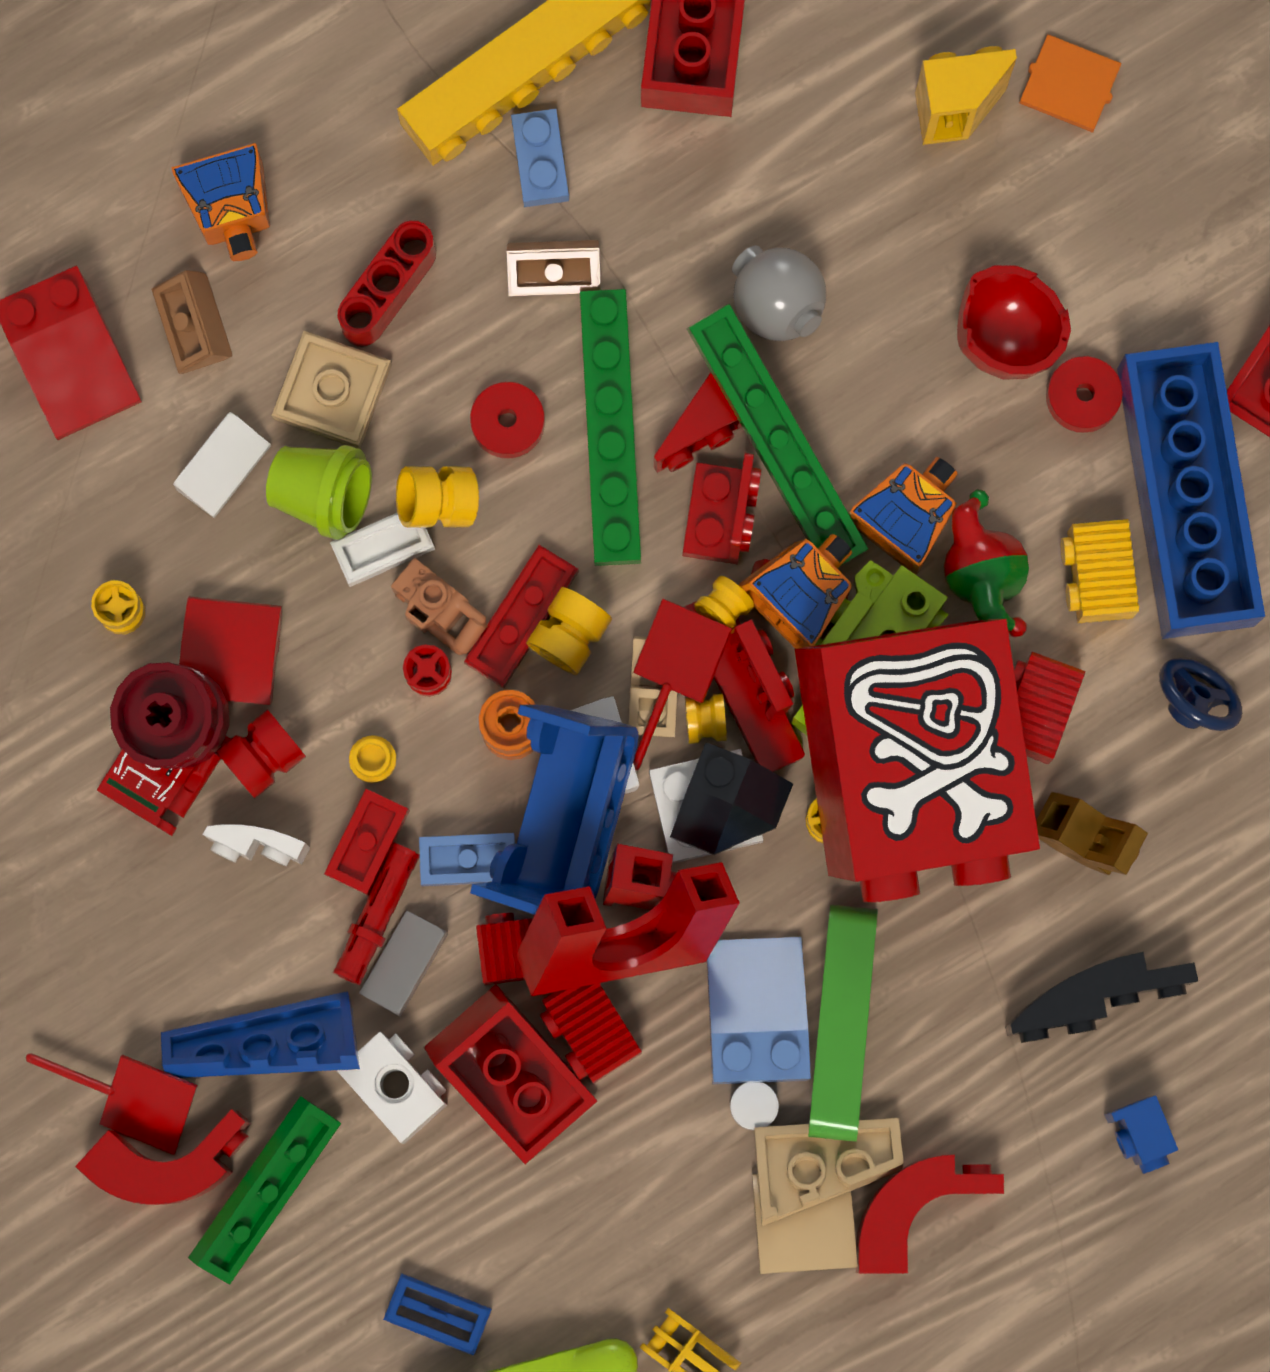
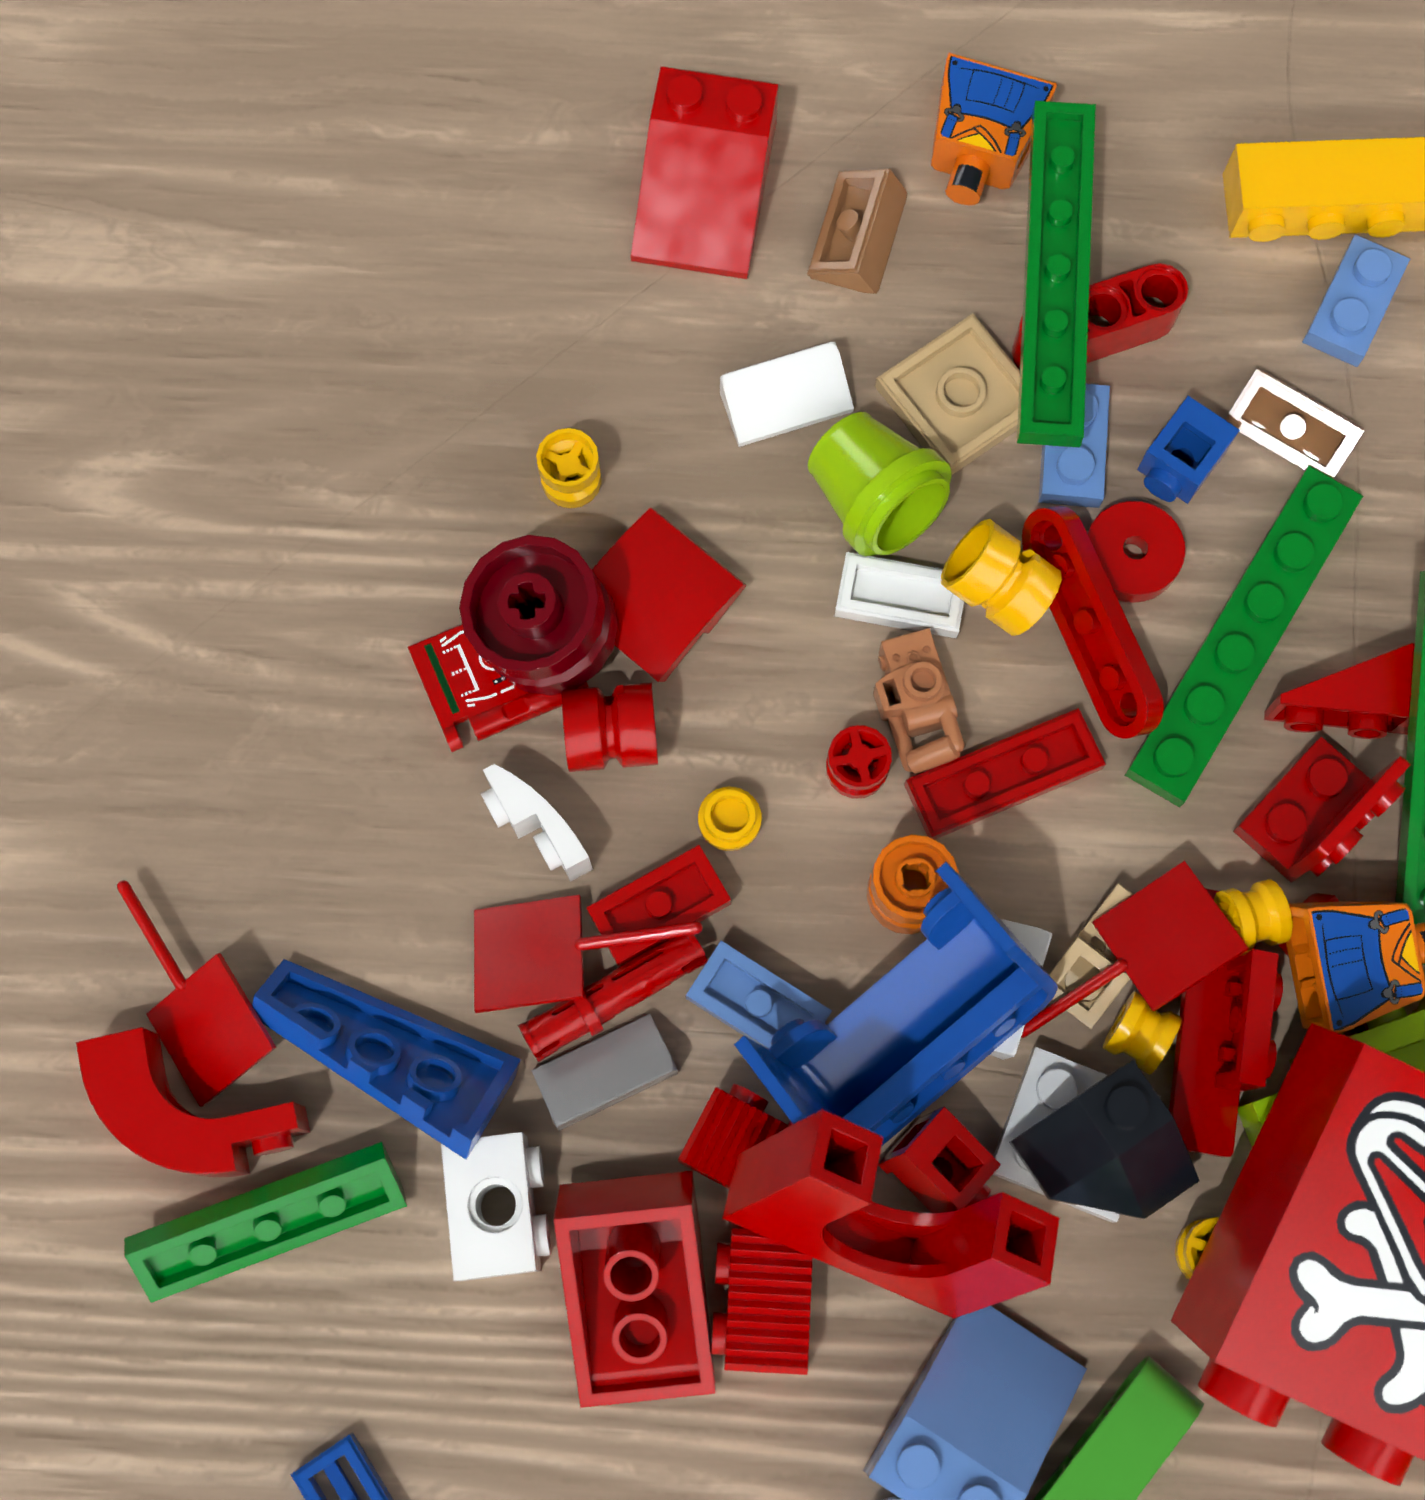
camera: 35 degrees right, 5 degrees down
(312, 921) = (536, 951): none -> red piece
(341, 276) = (1057, 275): none -> green plate
(425, 374) = (1078, 474): none -> medium blue plate
(498, 320) = (1197, 438): none -> blue brick
(513, 485) = (1095, 625): none -> red plate
(569, 630) = (1056, 823): yellow wheel -> none

